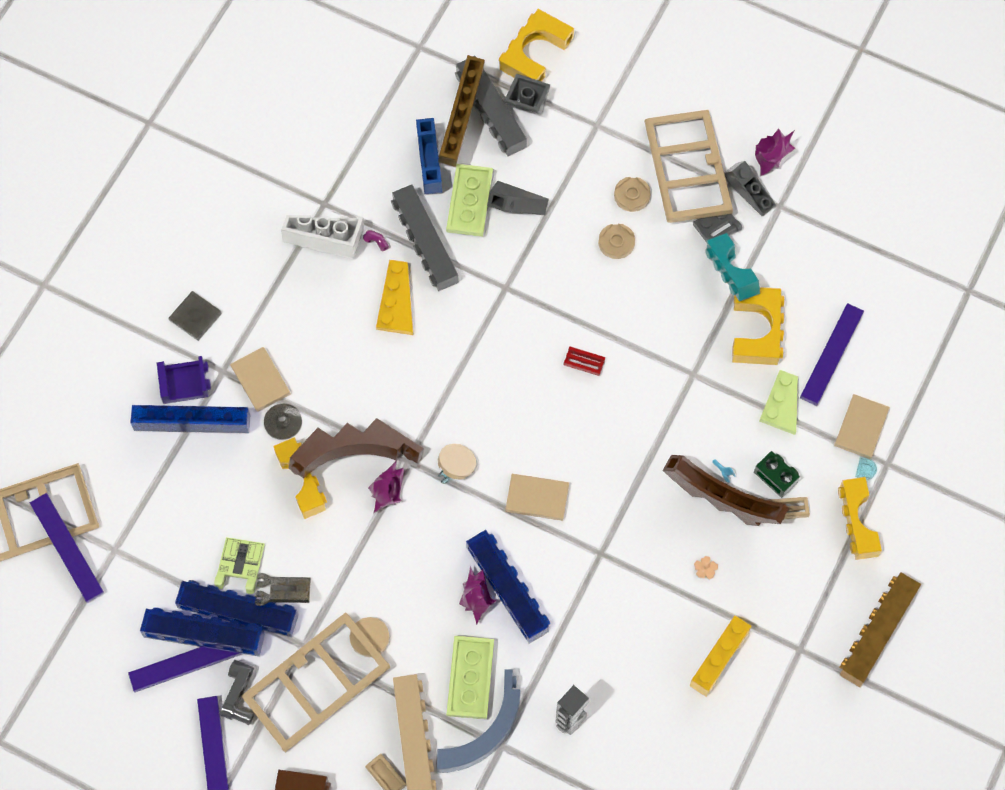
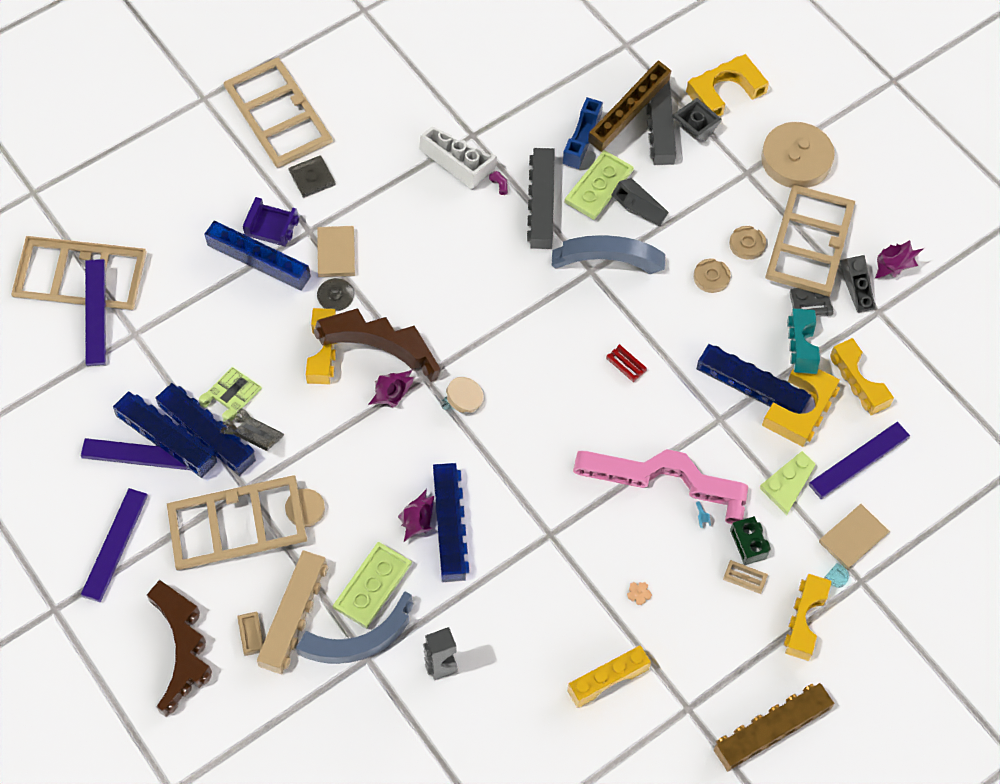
camera: 25 degrees right, 5 degrees down
(138, 245) = (297, 99): none -> tan door
(241, 673) = (177, 486): dark grey beam -> none
(395, 305) = (486, 242): yellow wing -> none
(513, 261) = (609, 248): none -> sand blue arch
(537, 497) = (519, 459): tan tile -> none
(634, 87) = (797, 154): none -> tan brick
(670, 437) = (668, 463): none -> bright pink beam
(704, 325) = (751, 380): none -> clear blue brick
(722, 496) = (689, 538): reddish brown arch -> none
(814, 289) = (873, 395): none -> yellow arch

